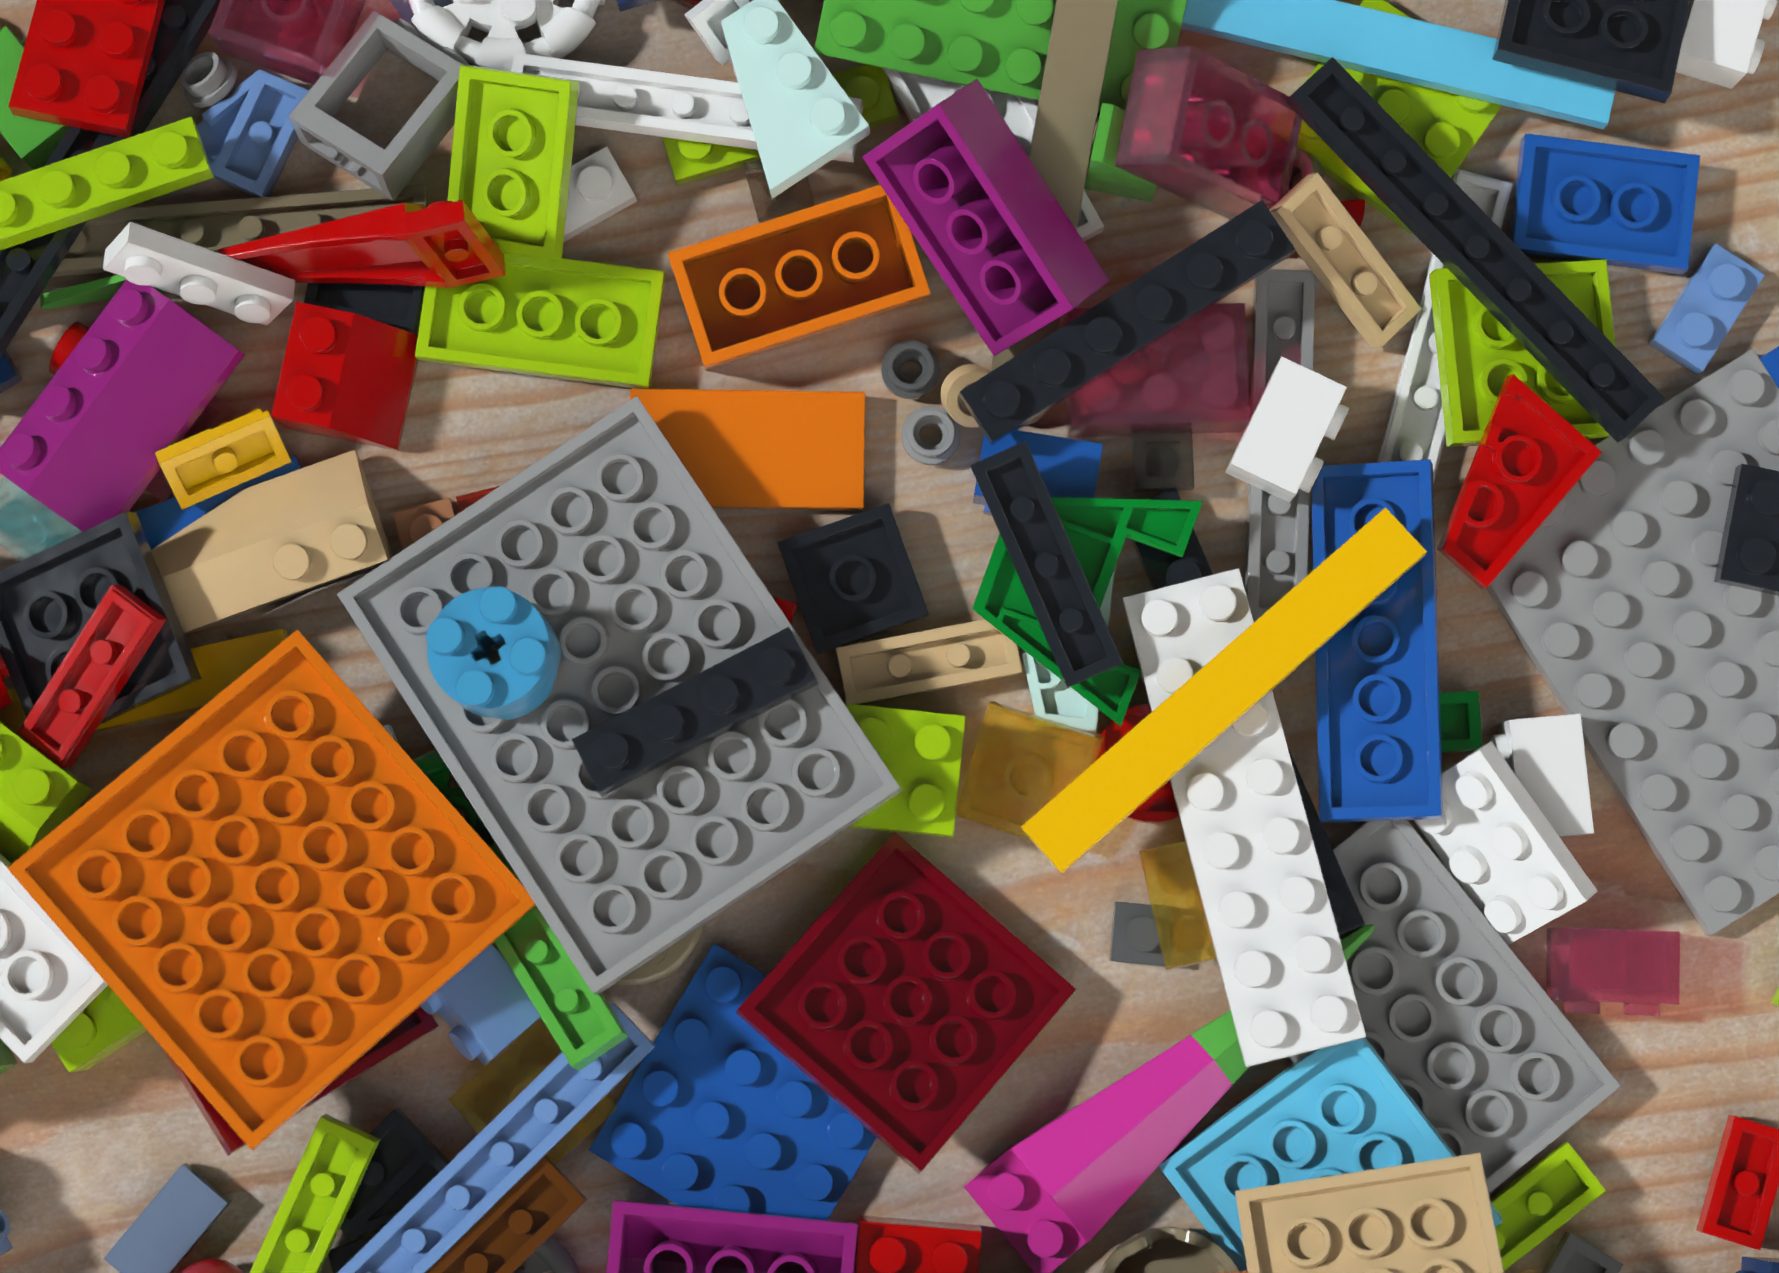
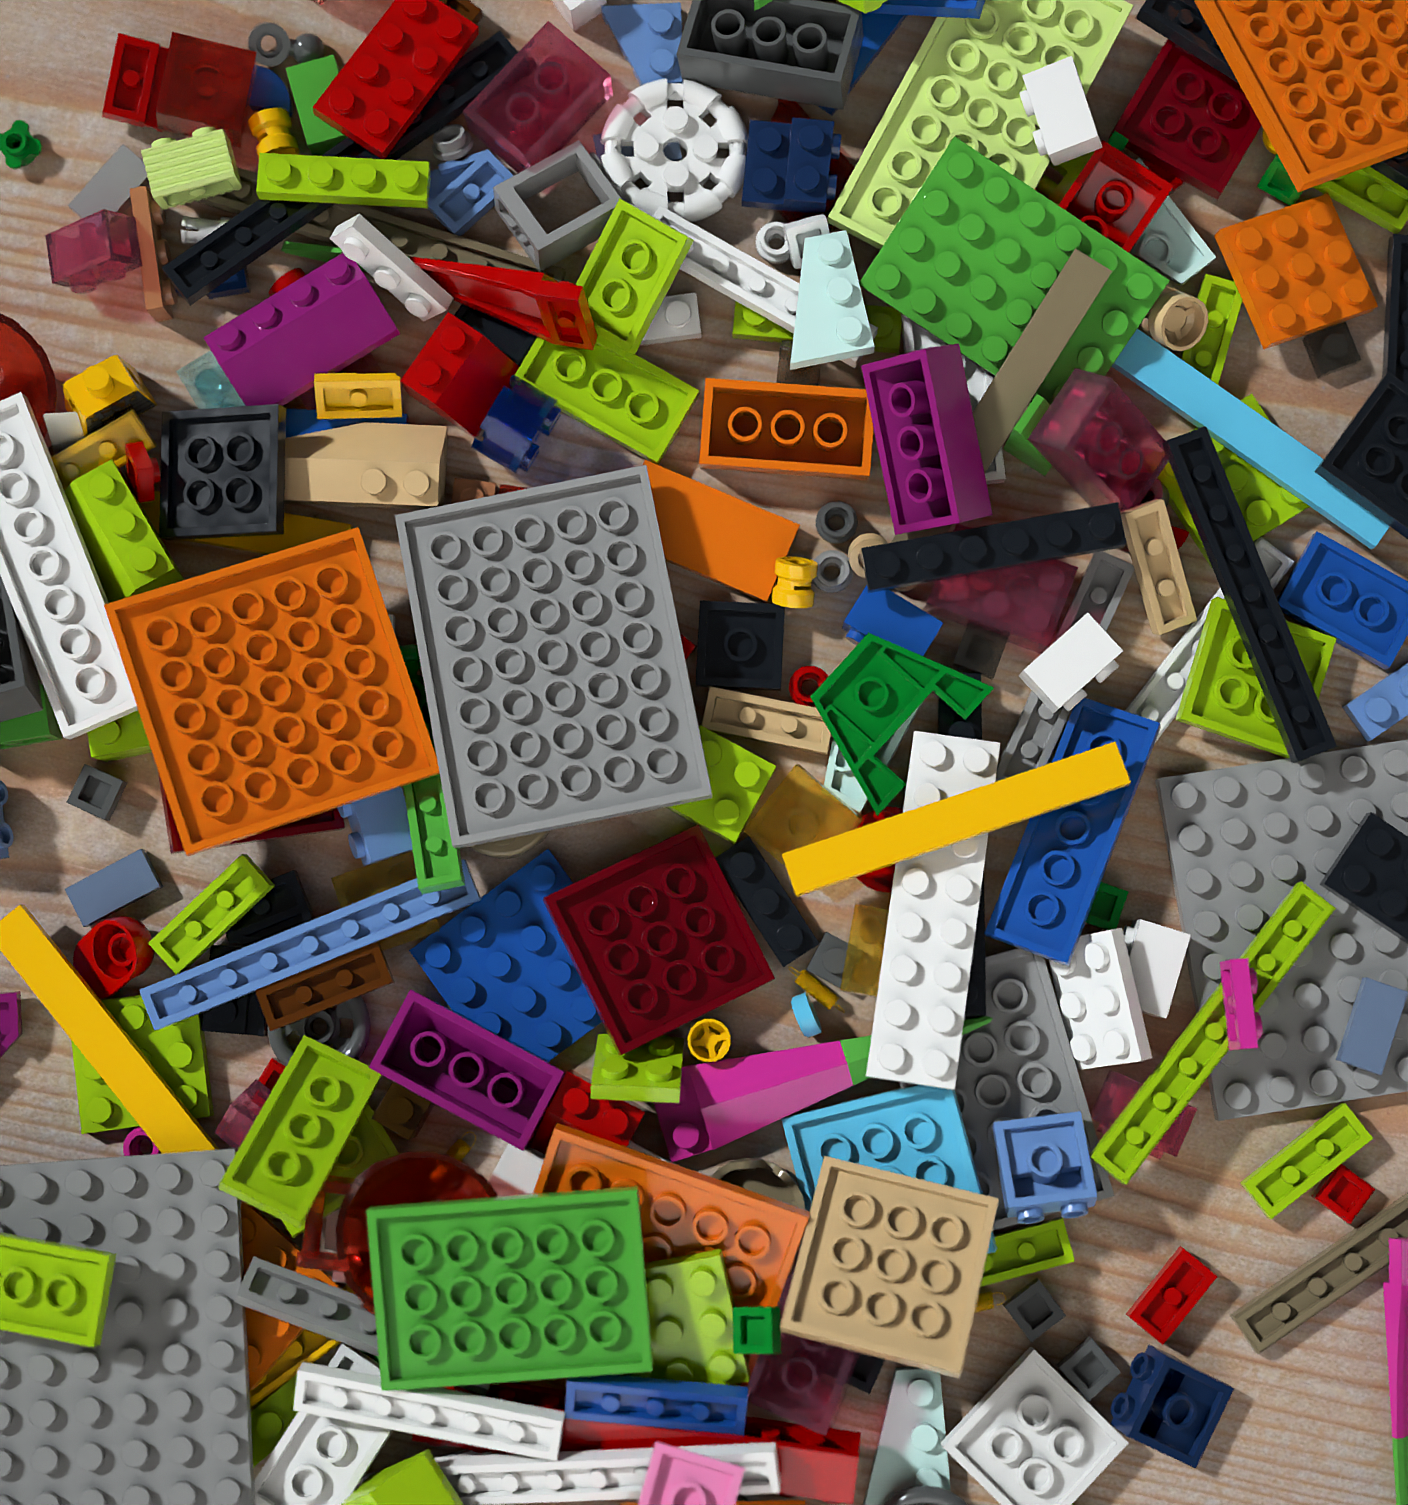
camera: 30 degrees right, 0 degrees up
(91, 676) = (212, 503): red tile -> none
(93, 1115) = (96, 792): none -> dark grey plate
(307, 594) = (377, 508): white sticker -> none
(446, 411) = (516, 424): none -> clear blue brick
(460, 646) = (458, 584): dark azure brick -> none
(667, 31) = (766, 233): none -> white plate
(694, 711) = (597, 688): black plate -> none
(889, 469) = (794, 582): none -> yellow wheel
(945, 587) = (799, 677): none -> red plate
(956, 1186) = (641, 1074): none -> lime plate
(1023, 895) = (766, 901): none -> black plate
(1030, 1109) = (709, 1040): none -> yellow wheel
(1046, 564) = (871, 686): black plate -> none
(1133, 981) = (816, 989): none -> yellow piece
(1134, 1019) = (806, 1015): none -> medium azure tile
(1514, 482) = (1210, 761): red wing -> none
(1519, 1087) = (1044, 1167): none -> medium blue plate
(1658, 828) = (1206, 1038): none -> lime tile
(1669, 756) = (1238, 986): none -> dark pink plate

